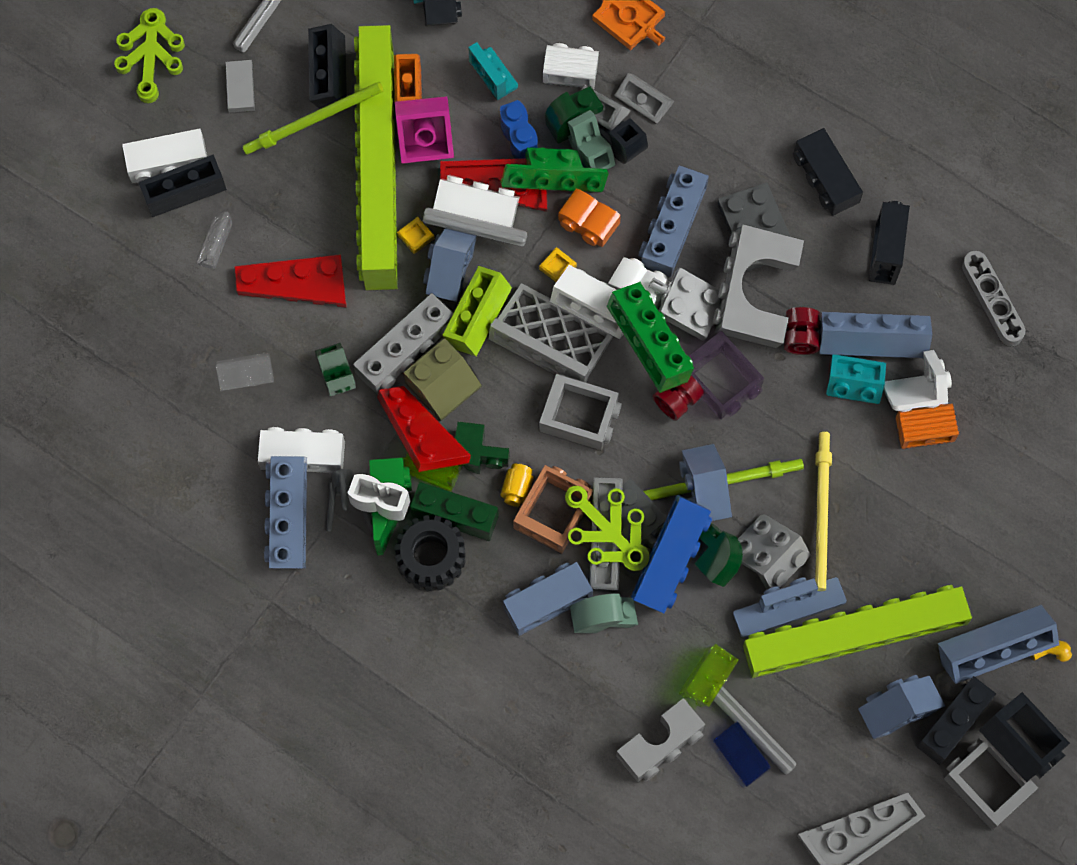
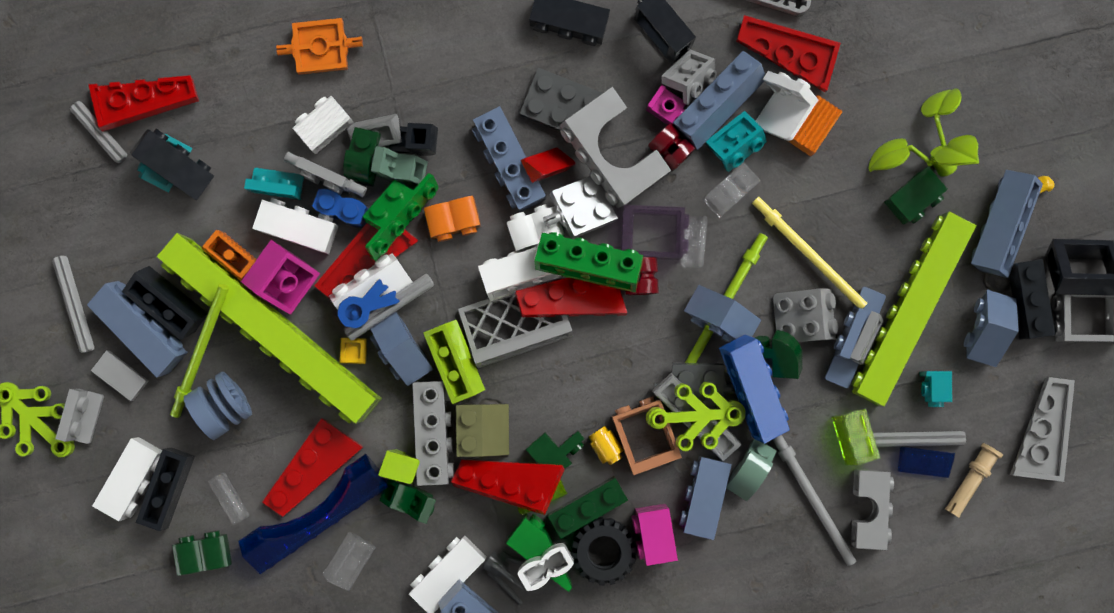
camera: 50 degrees left, 15 degrees up
(154, 256) = (201, 554): none -> dark green brick
(183, 81) = (80, 416): none -> light grey bracket
(208, 298) = (273, 543): none -> clear blue arch
(277, 167) = (213, 408): none -> sand blue wheel
(288, 67) = (137, 329): none -> sand blue brick
(355, 334) = (399, 466): none -> lime slope
(449, 200) = (355, 310): none -> blue piece
(474, 112) = (296, 225): none -> white brick
(480, 578) = (655, 534): none -> dark pink brick
(530, 93) = (317, 173): none -> light grey plate
(550, 426) = (611, 331): light grey window -> none
(556, 264) = (467, 271): yellow tile -> none
(610, 356) = (570, 298): none -> red wing
(643, 97) = (393, 93): light grey slope -> none
(643, 636) = (787, 454): none -> light grey bar
(697, 249) = (547, 164): none -> red slope
(746, 416) = (696, 242): none -> clear slope
(775, 804) = (978, 470): none -> tan pin
(796, 610) = (866, 338): none -> light grey tile
(811, 706) = (936, 387): none -> teal brick
(813, 405) = (731, 190): none -> clear brick
(828, 291) = (657, 108): none -> dark pink brick
(871, 295) = (690, 75): none -> light grey bracket
(950, 554) = (916, 196): none -> dark green brick
(971, 362) = (795, 51): none -> red wing
(1003, 538) = (945, 158): none -> lime plant

